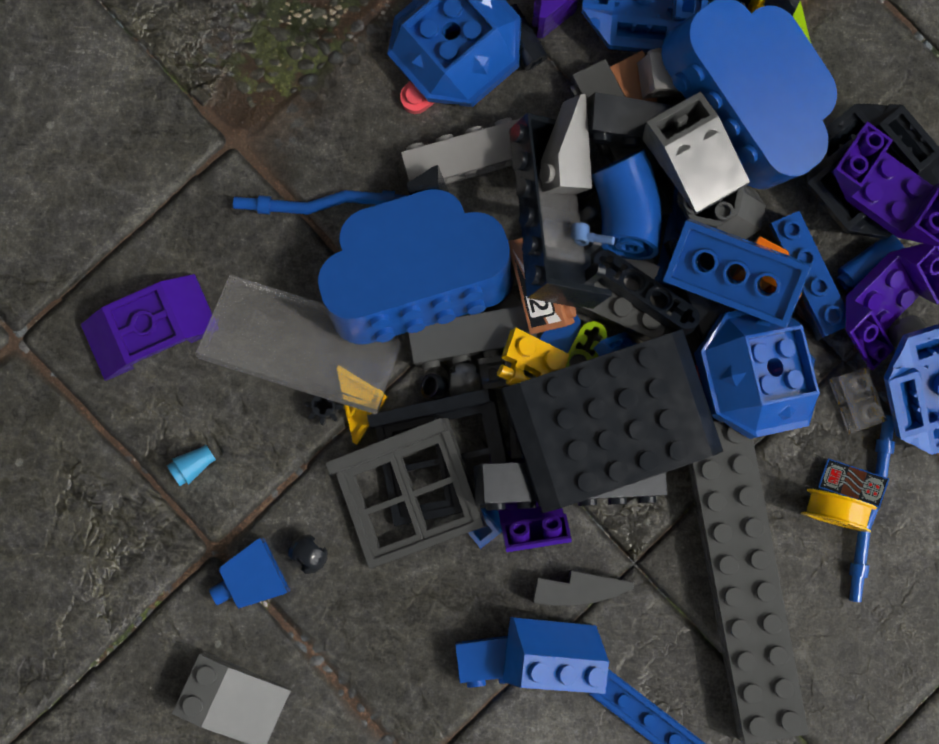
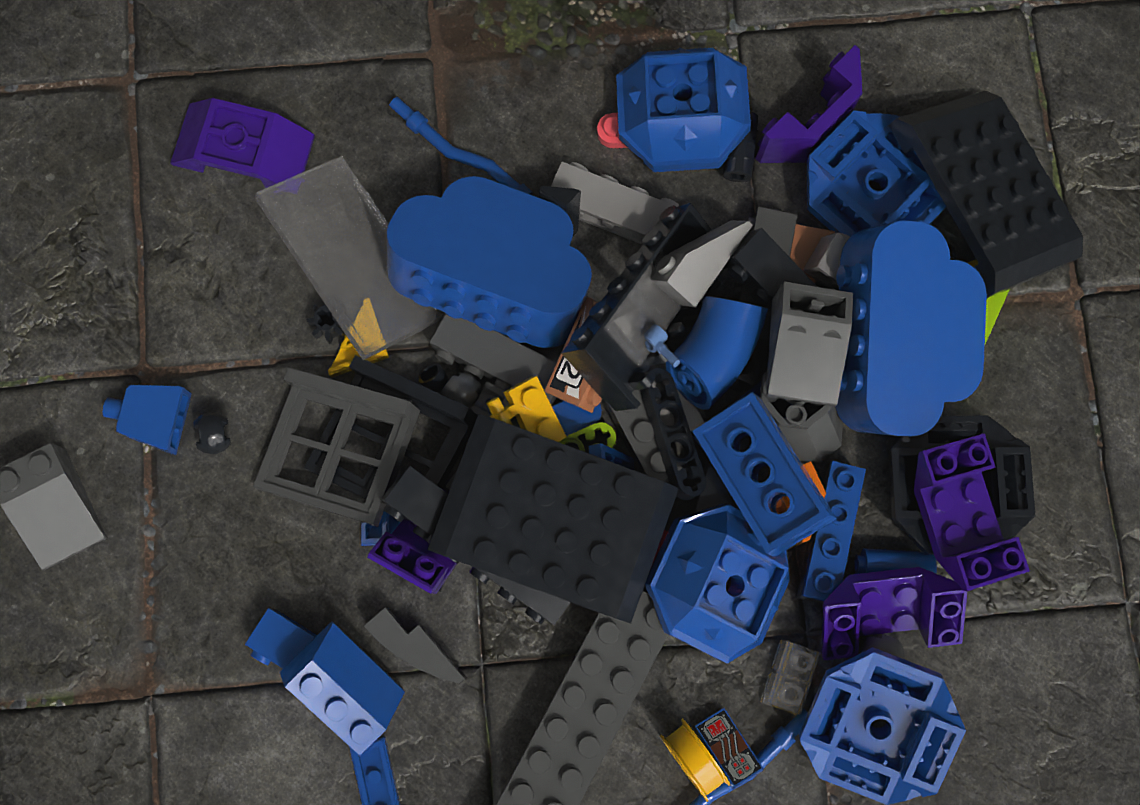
camera: 35 degrees right, 5 degrees down
(190, 465) = (180, 284): dark azure cone -> none

